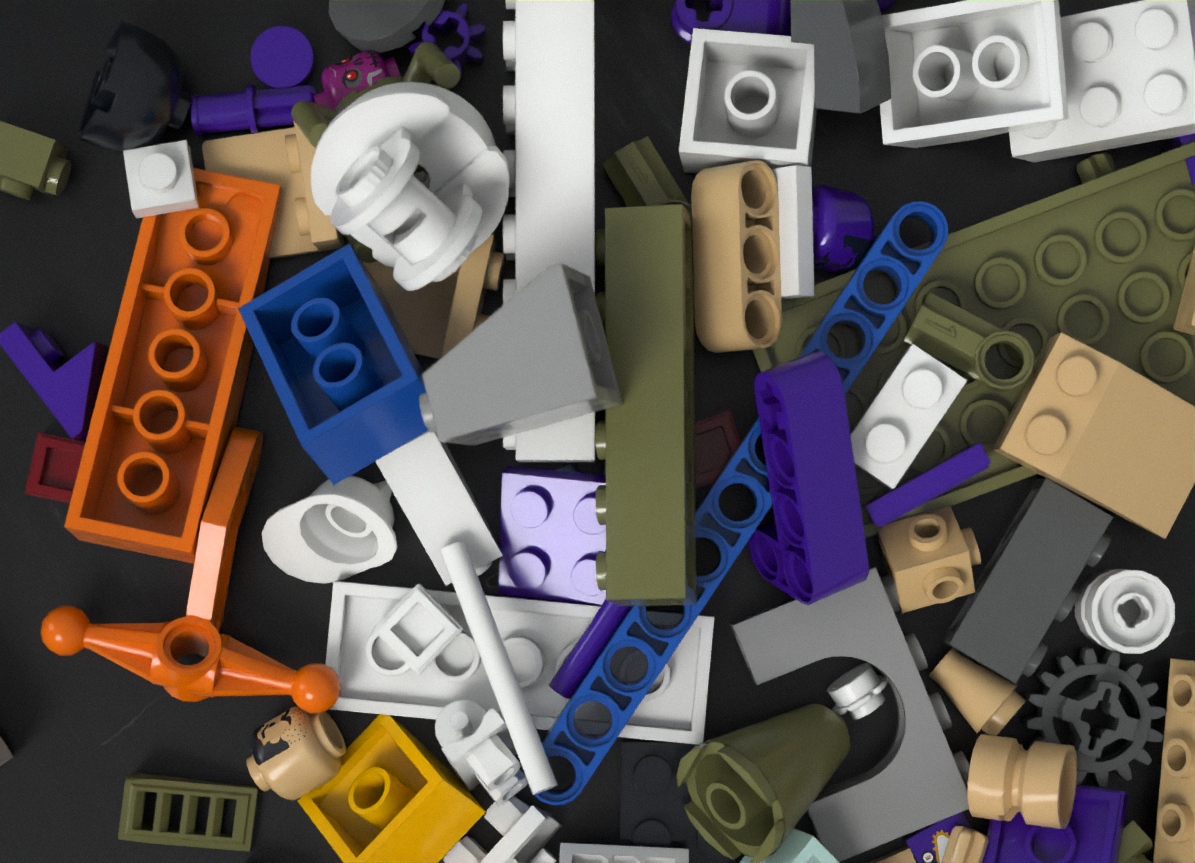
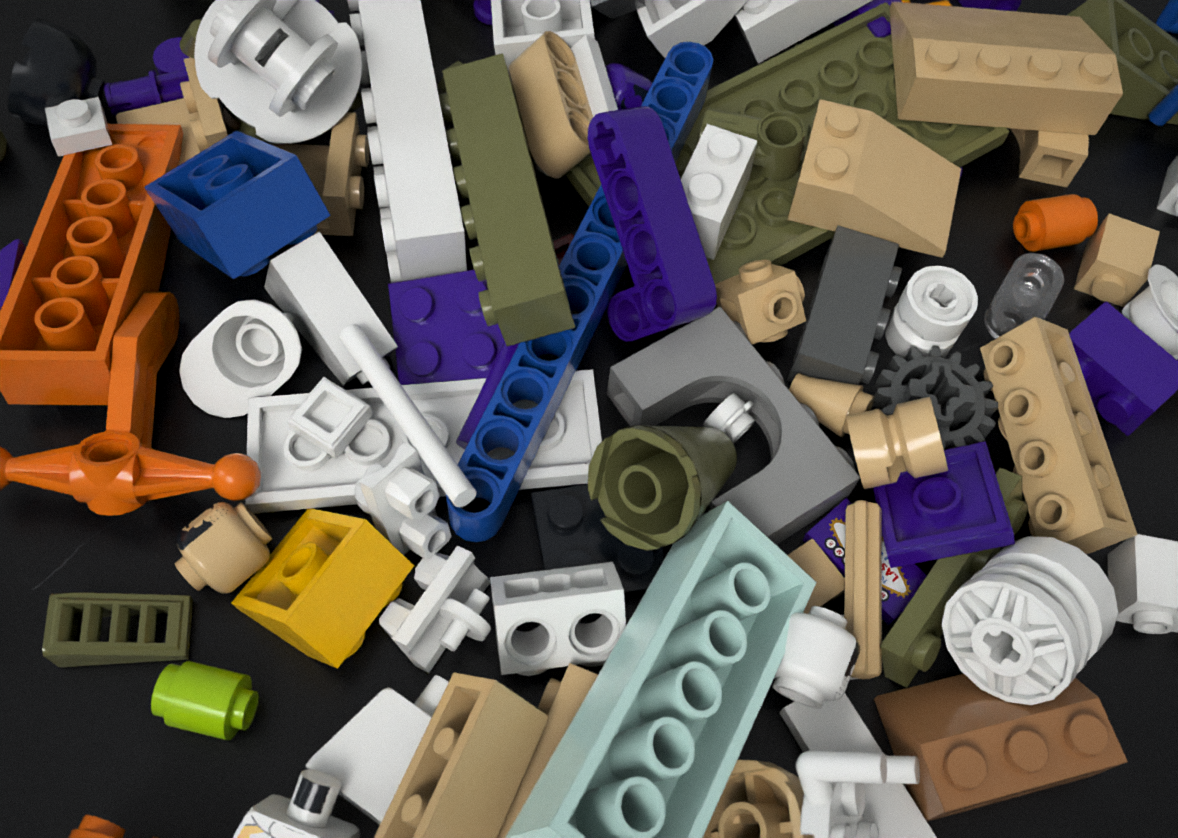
camera: 20 degrees left, 25 degrees down
(524, 365) = (385, 139): light grey slope -> none
(927, 485) = (748, 233): dark purple tile -> none

